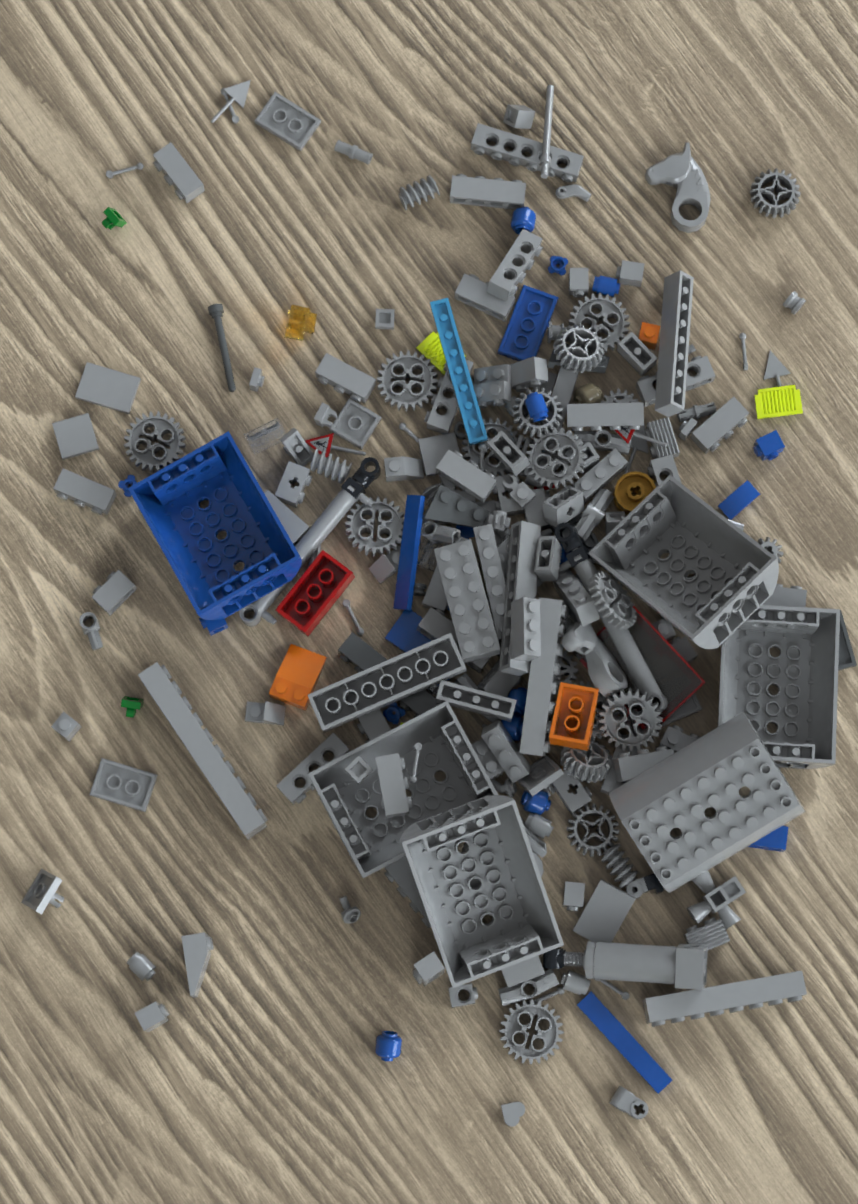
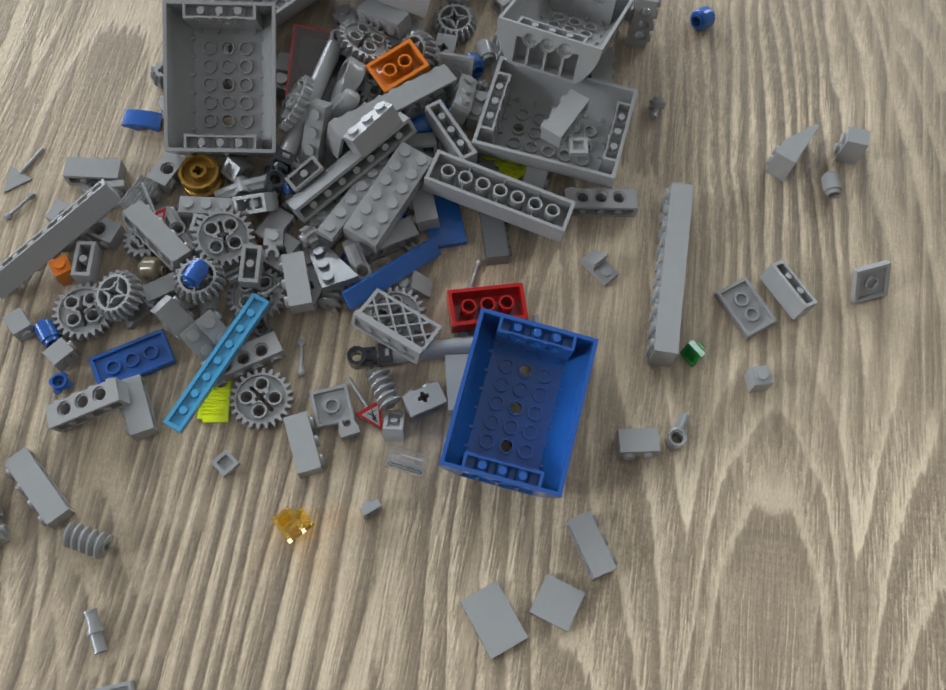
camera: 140 degrees left, 10 degrees down
(101, 824) = (788, 289): none -> light grey brick
(124, 484) = (544, 522): blue plate -> none
(162, 427) = (515, 527): light grey gear -> none
(216, 312) = (345, 599): dark grey piece -> none
(297, 677) = (554, 267): orange slope -> none
(358, 496) = (388, 334): none -> light grey fence
(403, 469) = (335, 339): light grey slope -> none
(418, 746) = (521, 130): light grey hinge -> none
(433, 450) = (297, 328): light grey tile -> none
(523, 219) = (41, 439): blue head -> none
(553, 330) = (120, 333): light grey brick -> none
(768, 446) = (81, 132): blue brick -> none
(778, 402) = (41, 155): neon yellow window -> none

